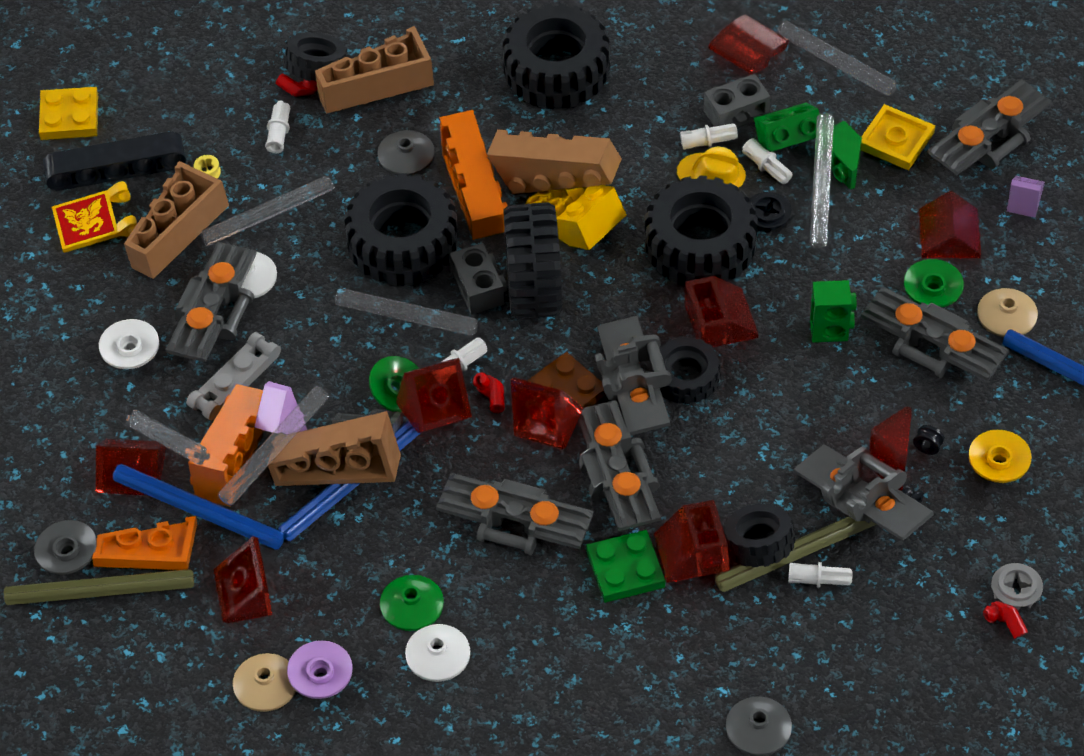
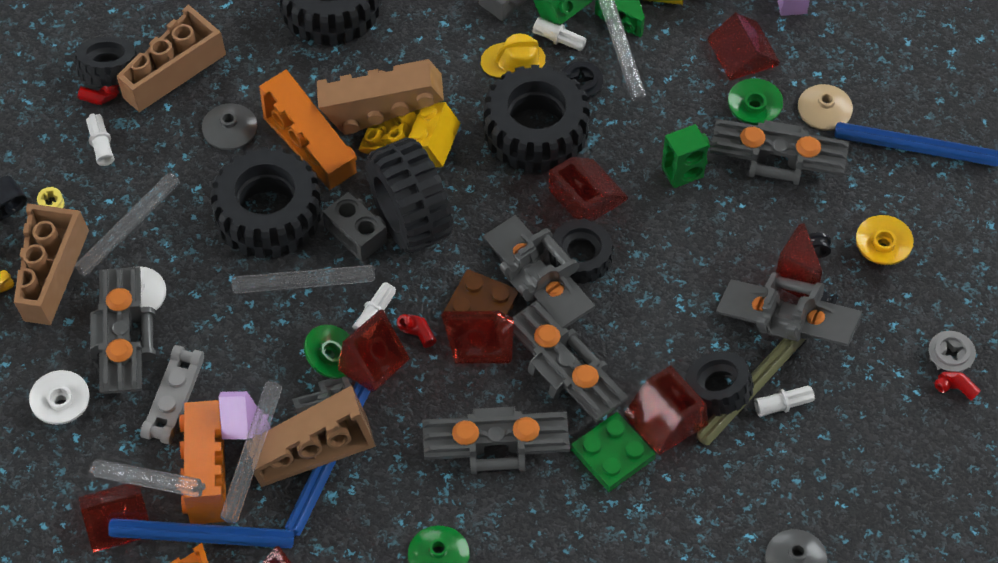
camera: 25 degrees left, 5 degrees up
(707, 136) = (496, 27): white axle -> none

